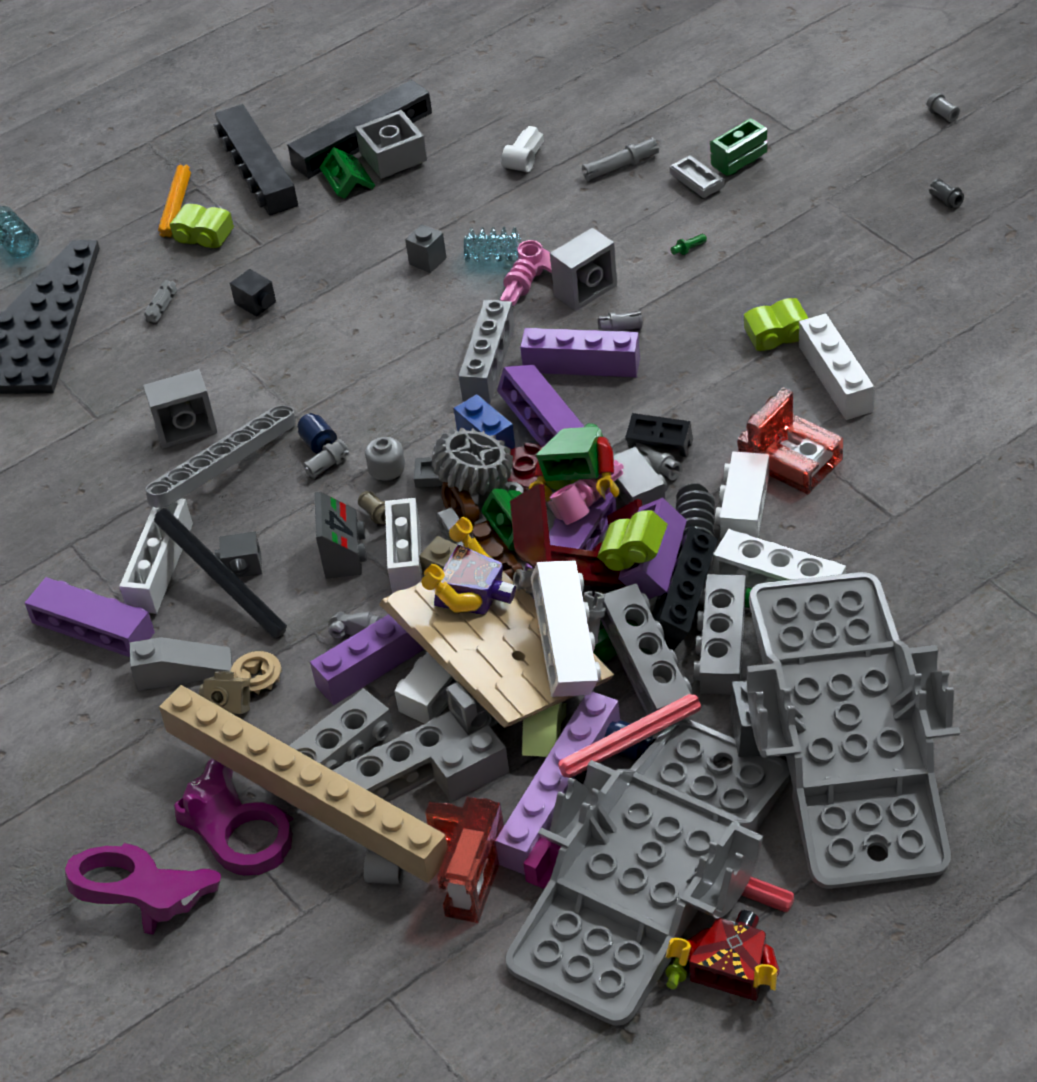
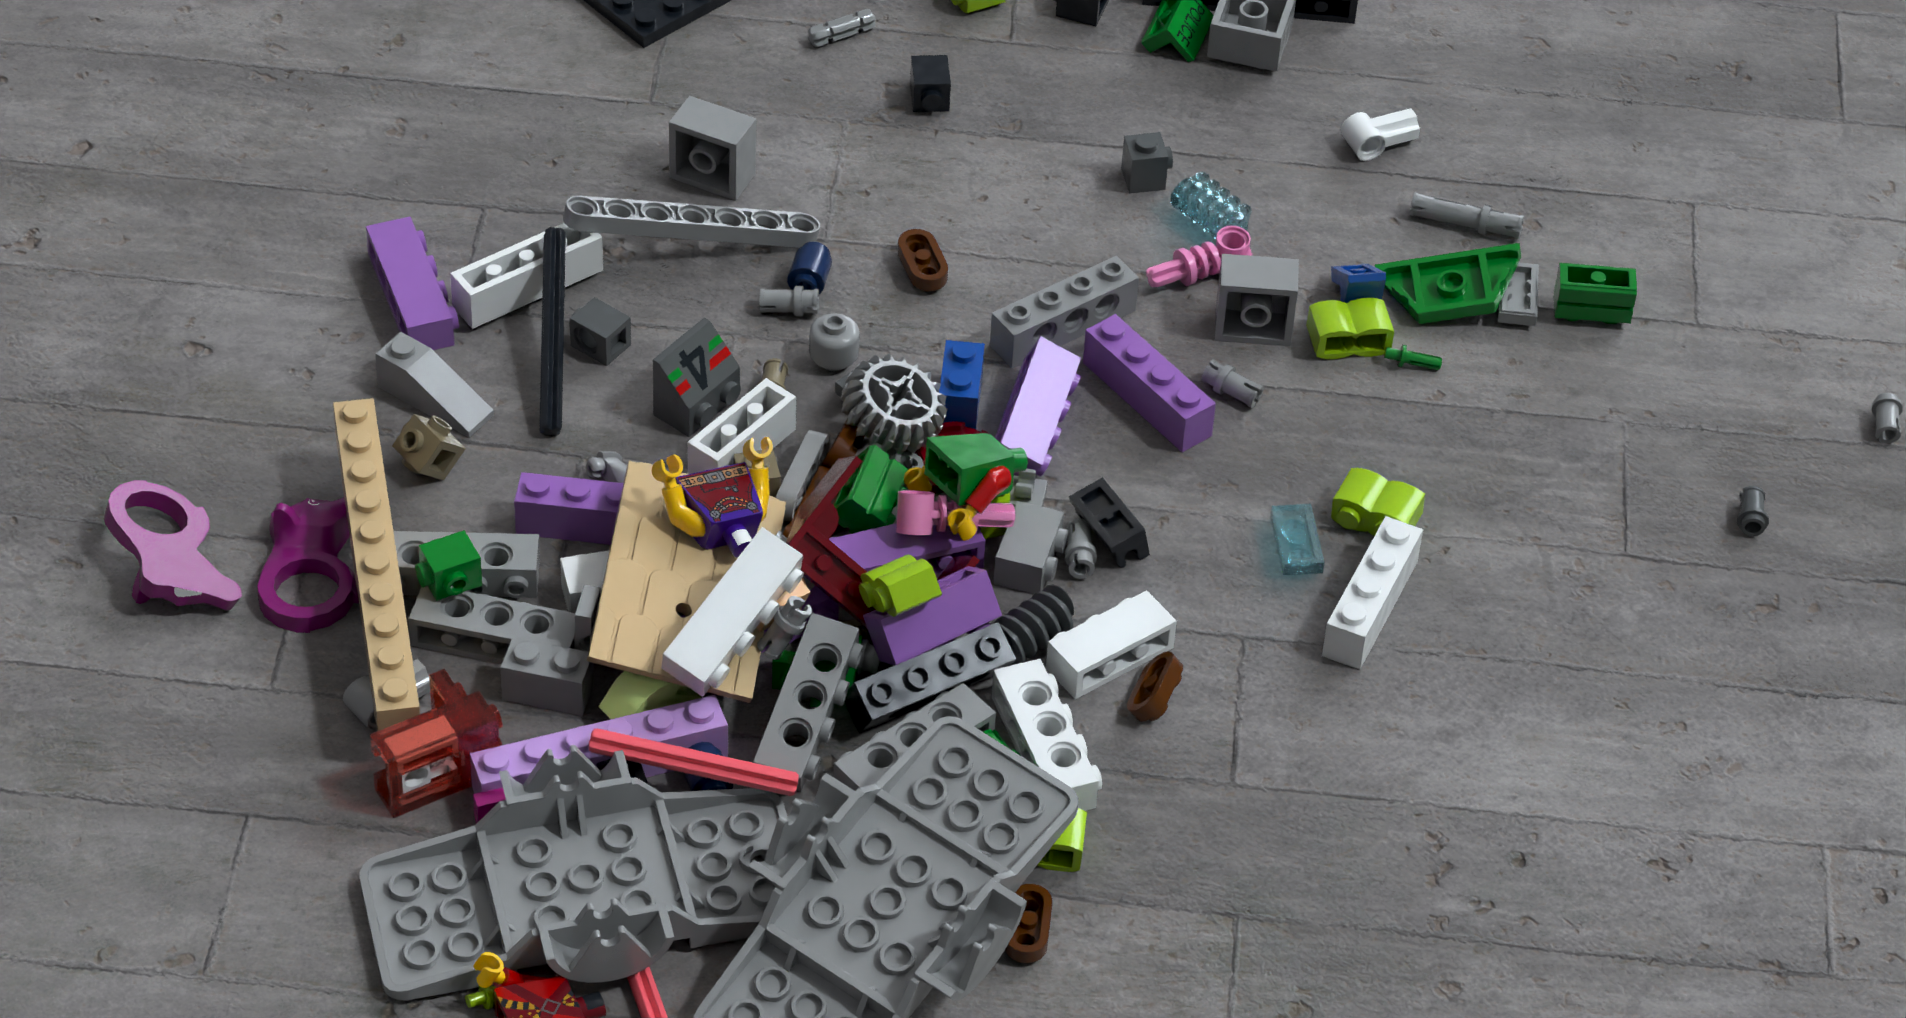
camera: 35 degrees right, 0 degrees up
(254, 662) = (494, 440): tan gear -> none
(343, 744) = (449, 565): none -> green brick
(371, 383) = (922, 259): none -> reddish brown plate
(621, 226) = (1359, 281): none -> blue slope
(642, 251) = (1349, 328): none -> lime brick
(659, 195) = (1452, 282): none -> green wing
(760, 371) = (1297, 539): none -> clear light blue plate
(797, 449) = (1217, 603): clear red brick -> none
(799, 503) = (1155, 687): none -> reddish brown plate

